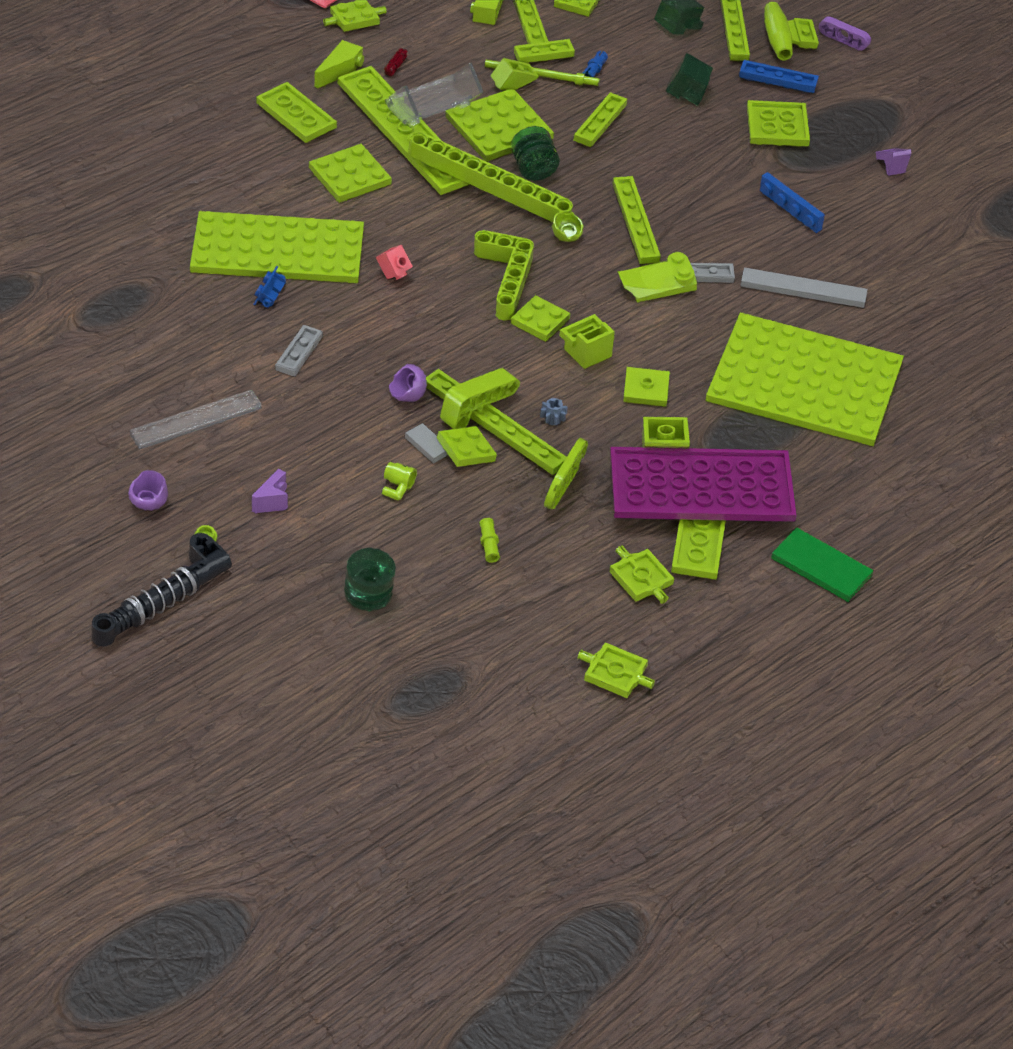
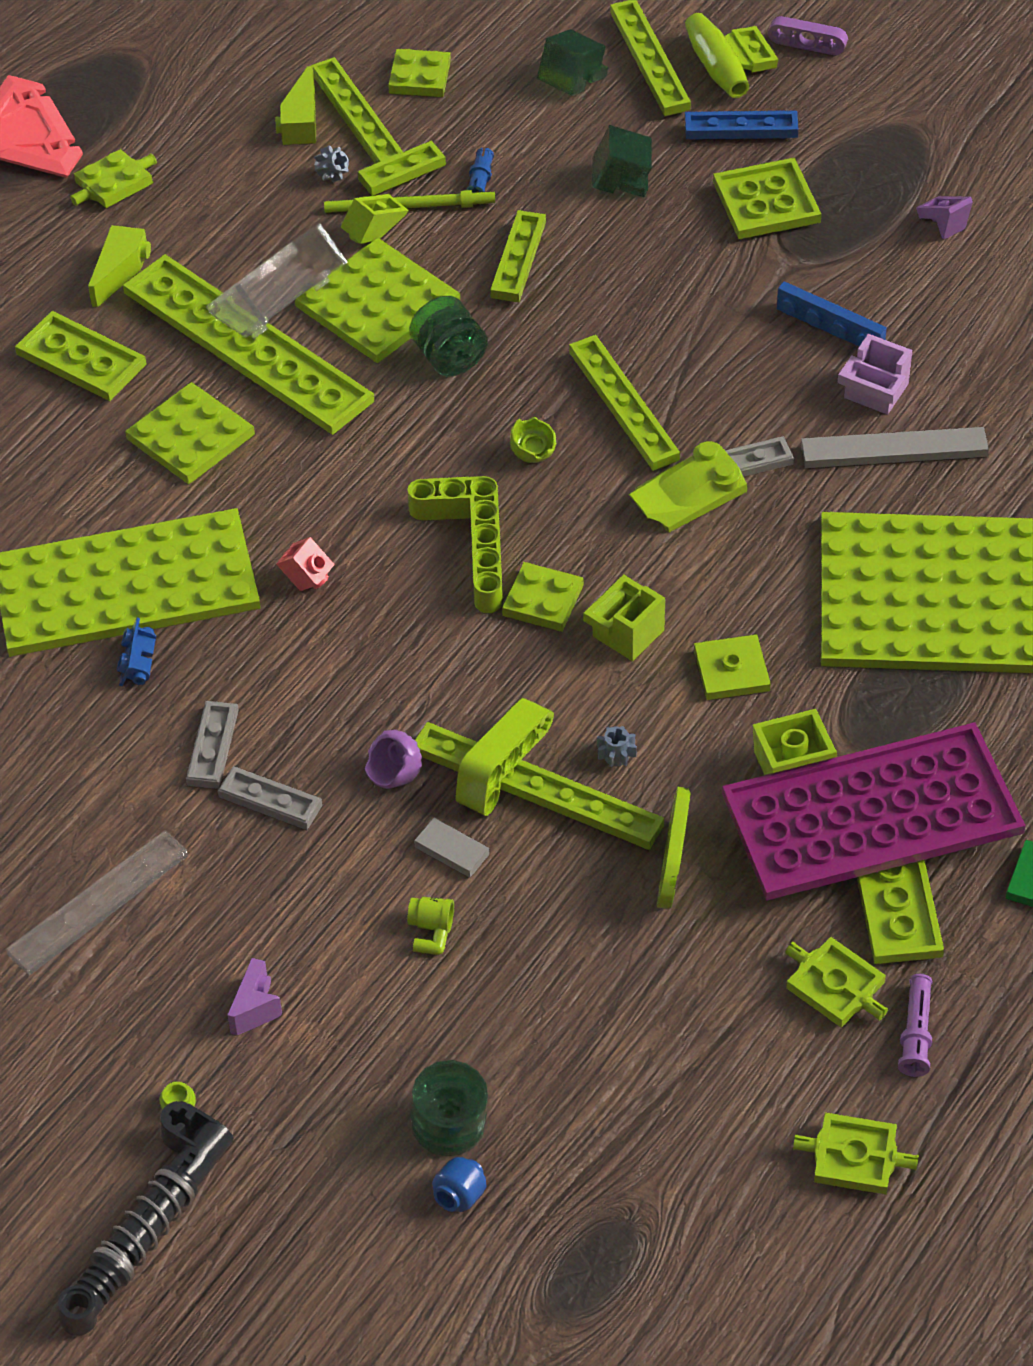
camera: 10 degrees left, 5 degrees up
(148, 491) = (69, 1049): medium lavender hair -> none
(324, 388) = (270, 798): none -> light grey tile
(361, 623) = (459, 1184): none -> blue head
(395, 62) = (196, 237): dark red axle -> none
(466, 446) = (511, 838): lime plate -> none
(487, 176) = (394, 391): lime beam -> none
(489, 540) = (597, 986): lime pin -> none
(498, 37) = (331, 163): none -> sand blue gear
(693, 594) = (916, 1038): none -> medium lavender pin
(808, 240) = (876, 374): none -> lavender plate

